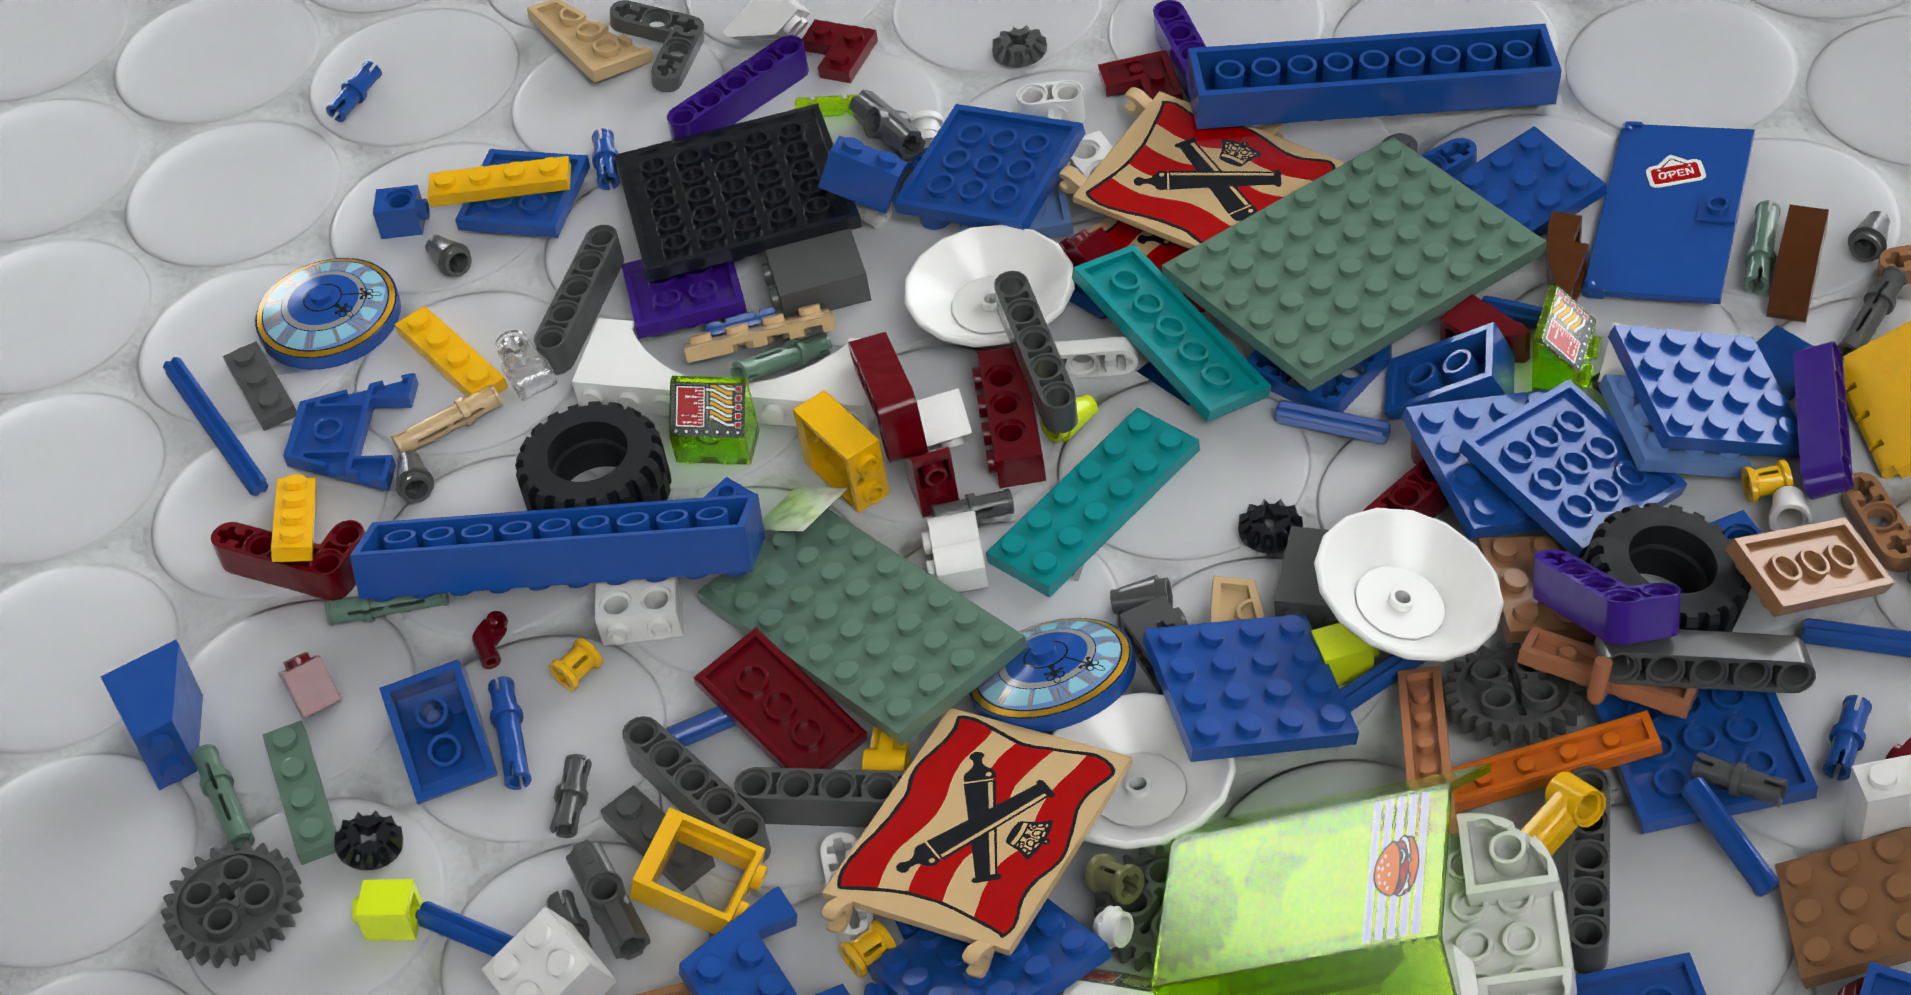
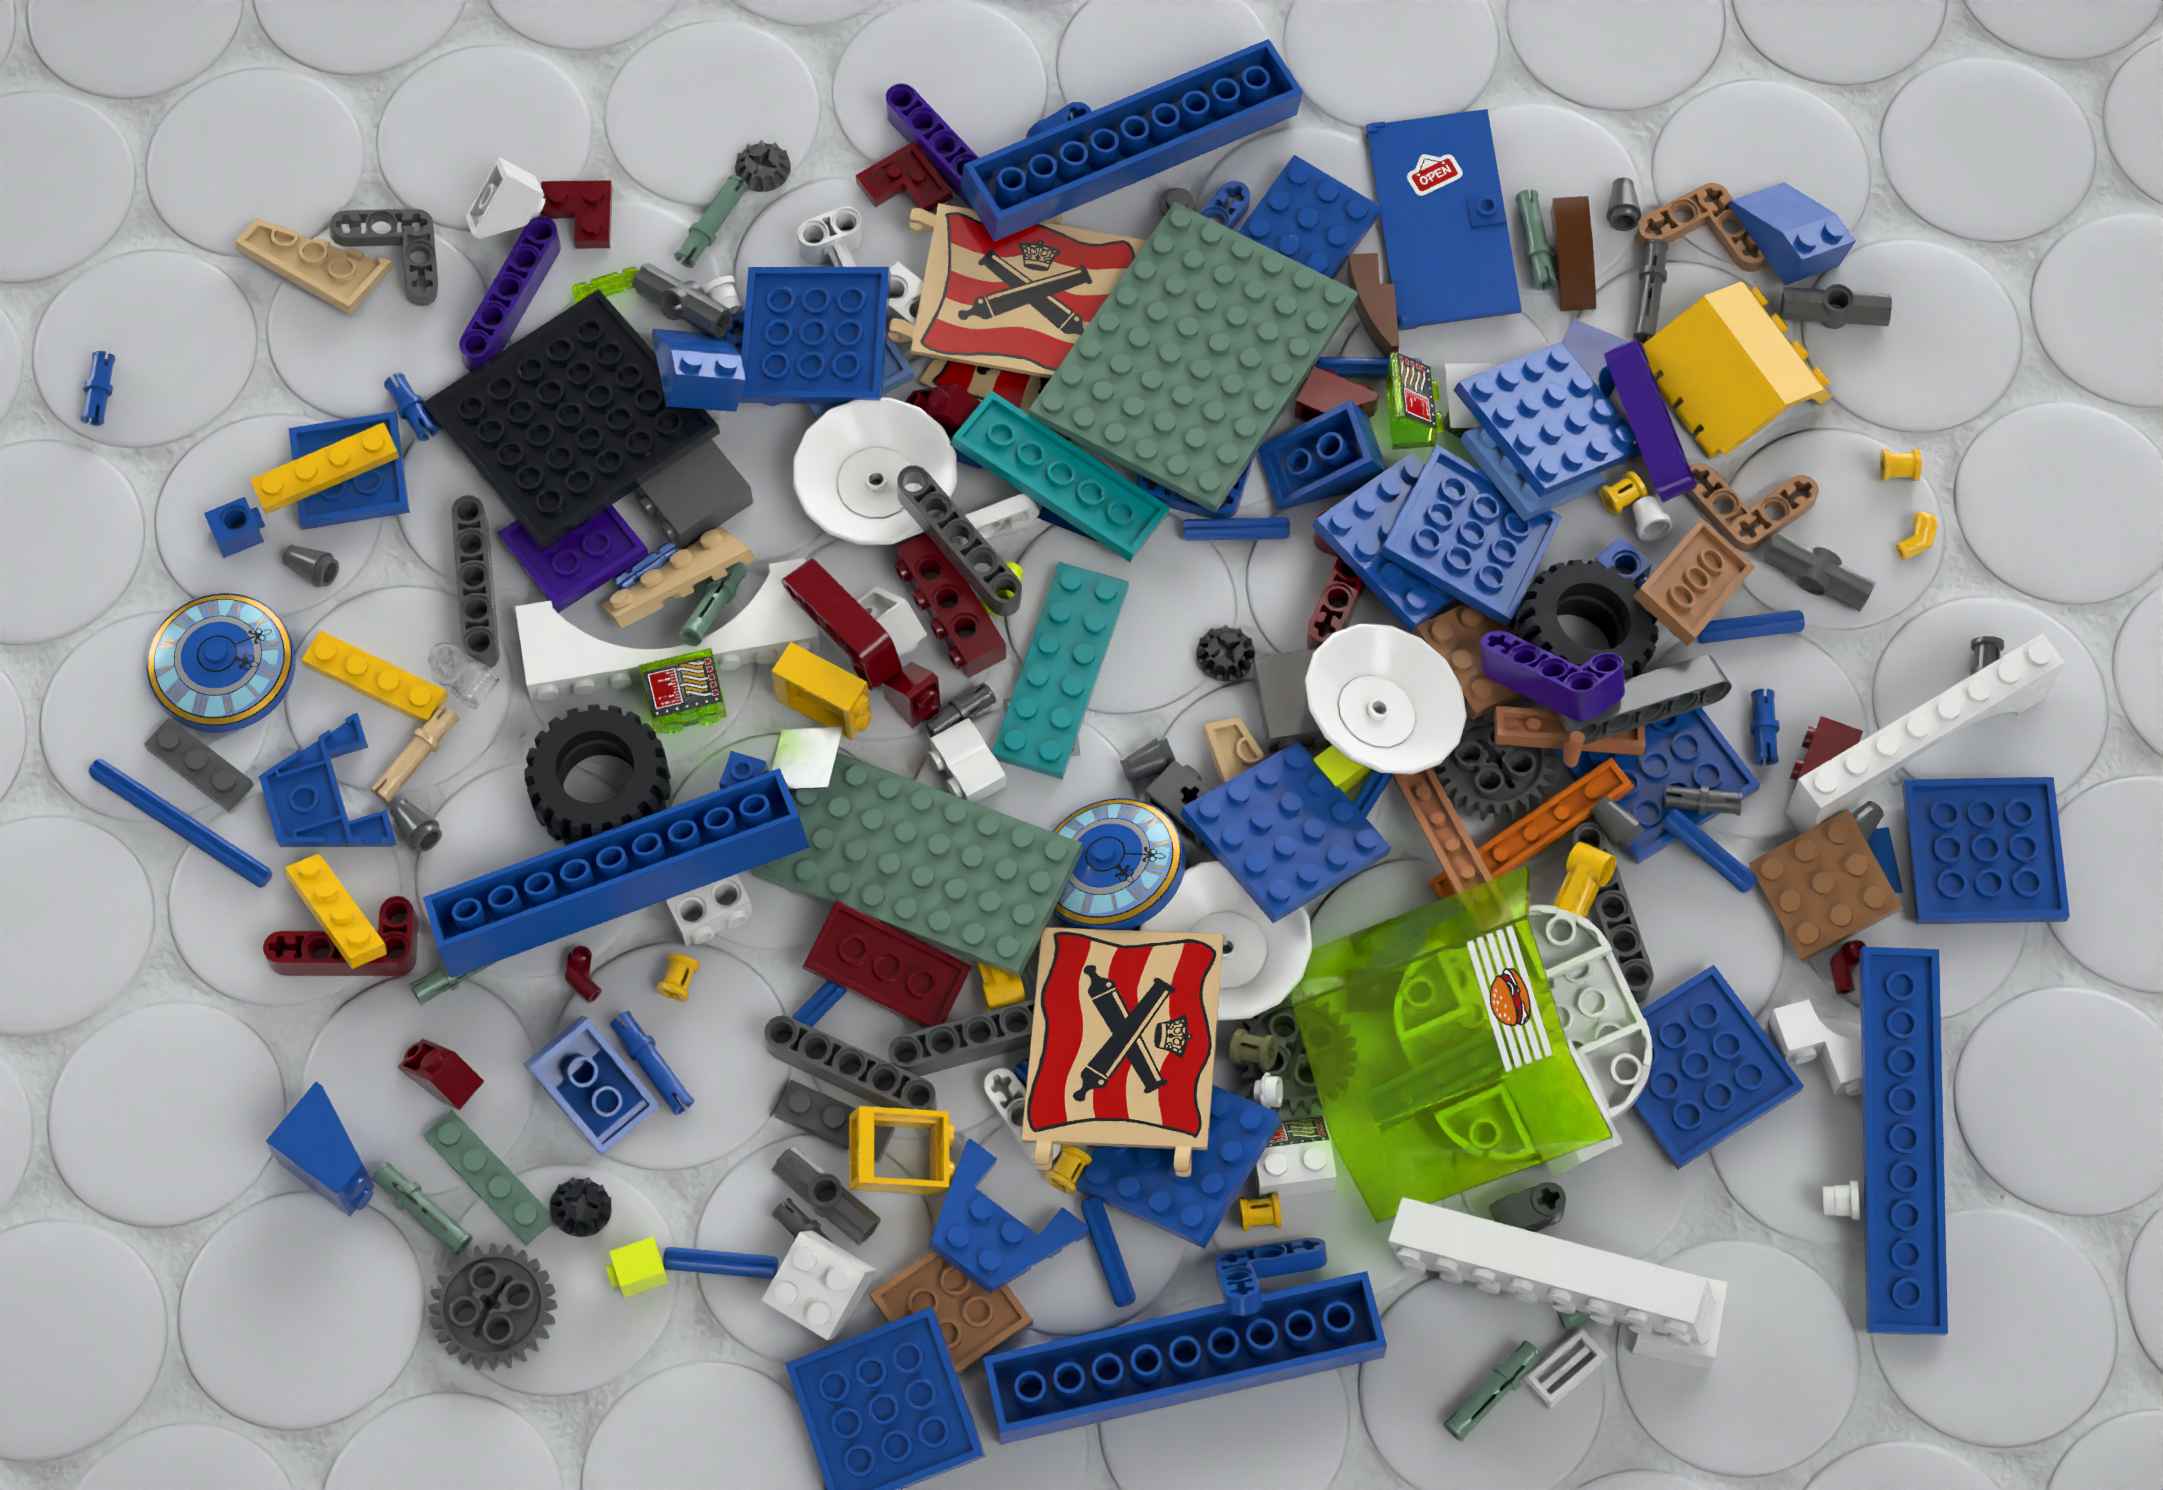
camera: 30 degrees left, 20 degrees up
(571, 796) = (739, 1106): dark grey pin -> none
(937, 82) = (703, 232): none -> sand green pin
(1627, 774) = (1617, 822): none -> dark grey cone

